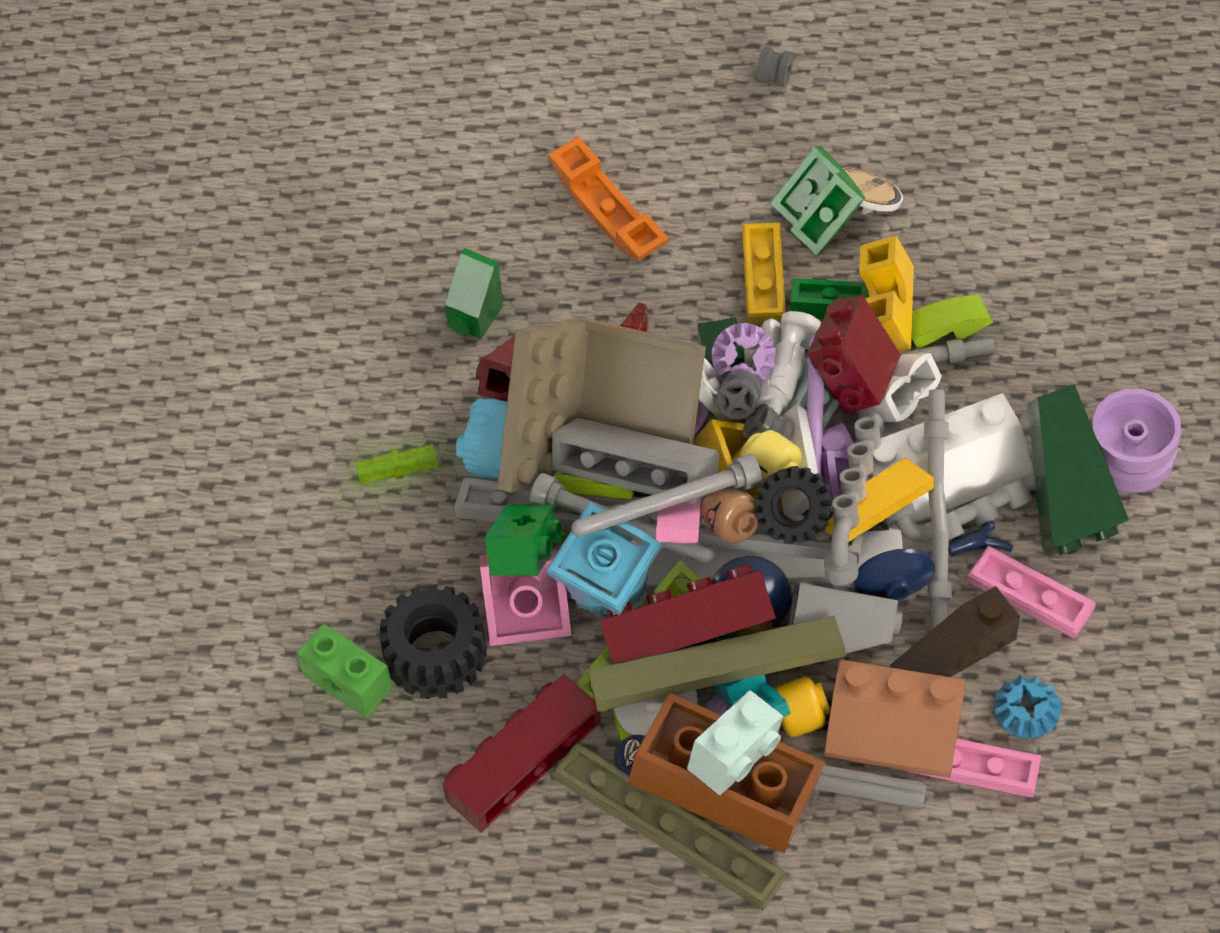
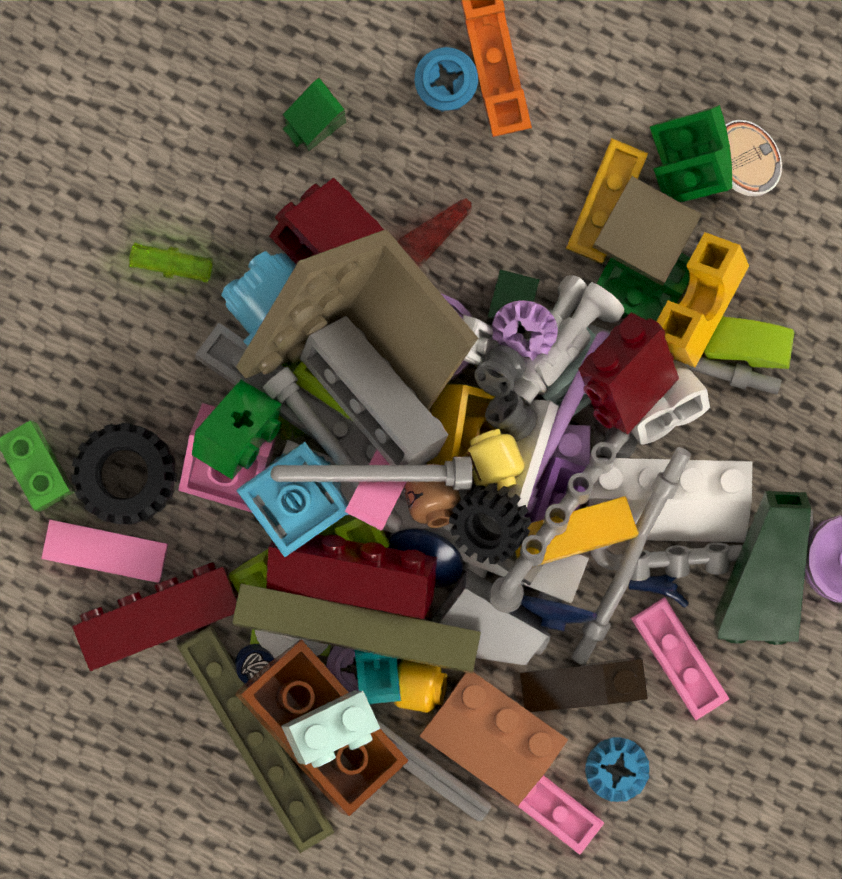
camera: 15 degrees right, 30 degrees up
(443, 723) = (104, 551): none -> bright pink tile
(574, 225) = (453, 62): none -> dark azure gear
(810, 269) = (647, 230): none -> dark tan tile

